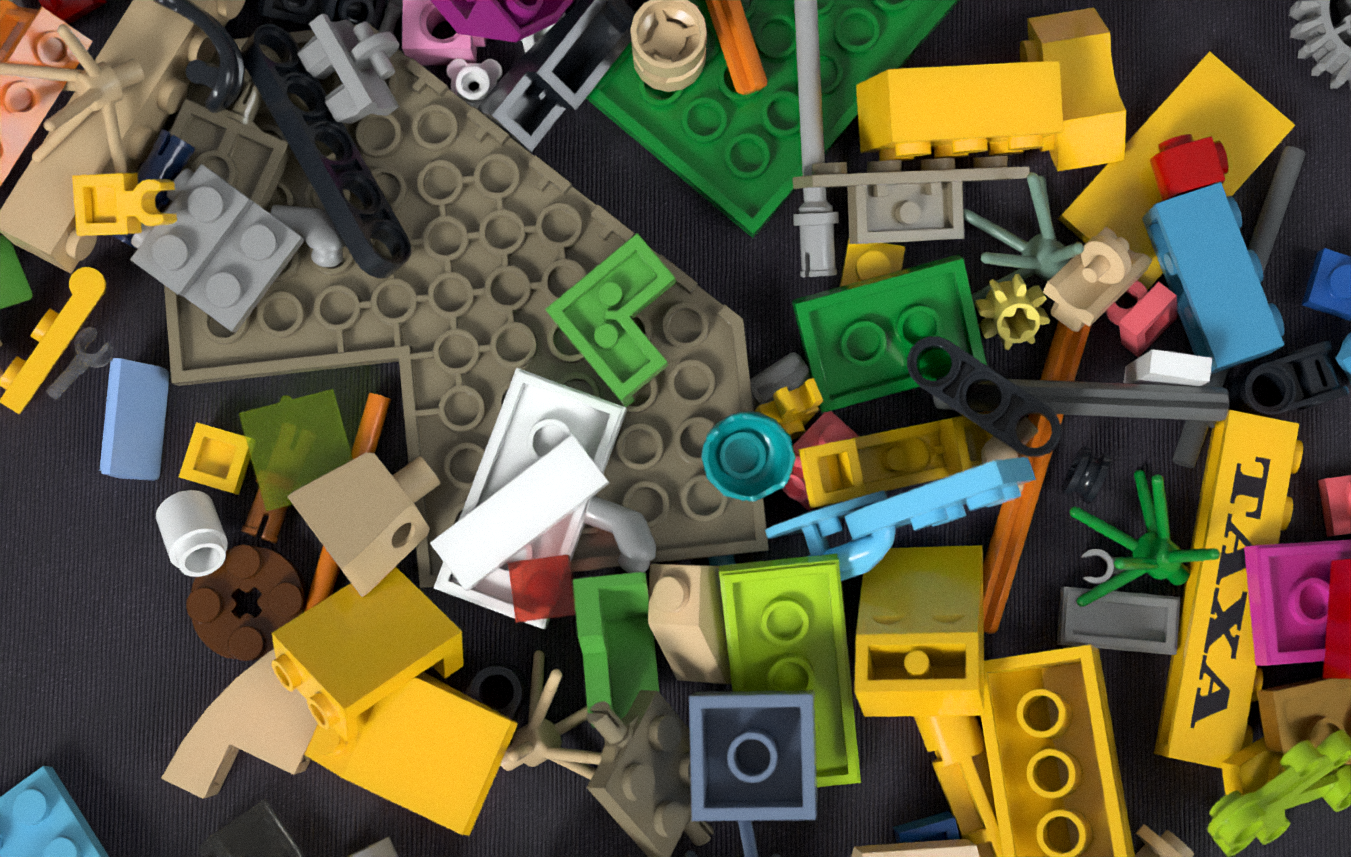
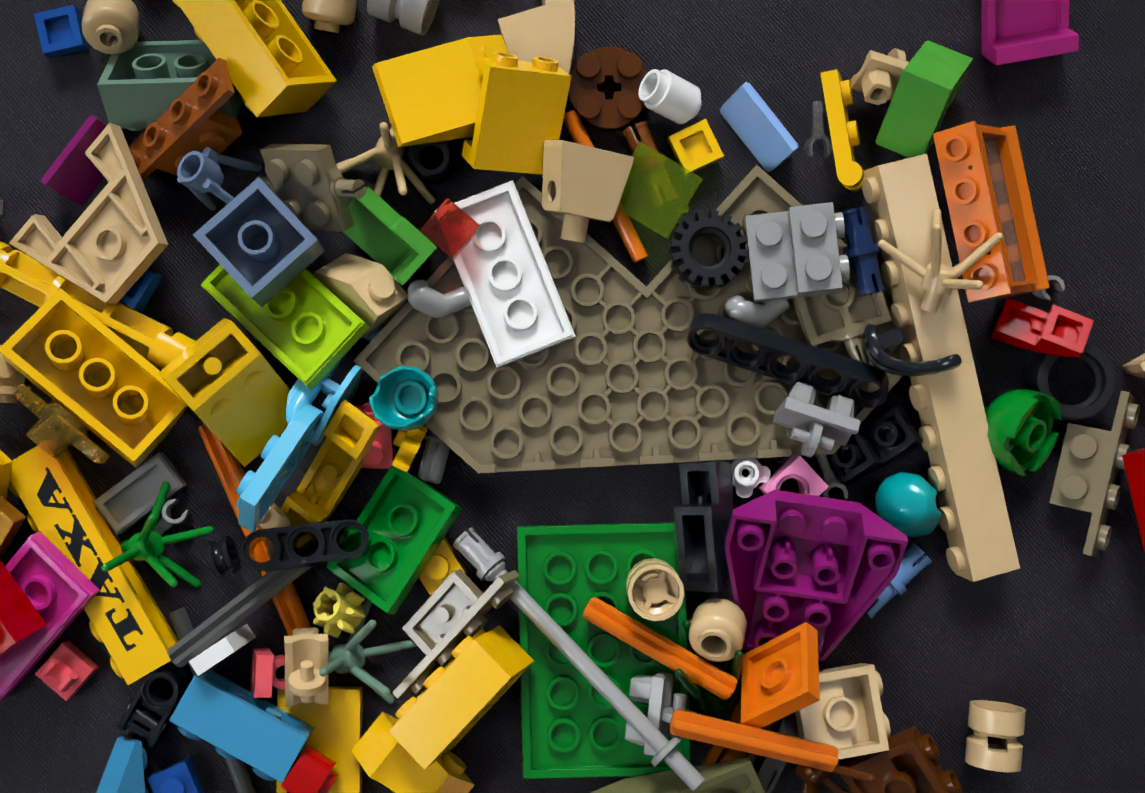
camera: 140 degrees right, 5 degrees up
(118, 203) = (866, 222): yellow plate -> none
(277, 310) = (719, 227): none -> black tyre
(519, 513) = (500, 259): white tile -> none
(600, 312) = (552, 402): bright green panel -> none
(1141, 755) = (57, 428): none -> clear yellow gear

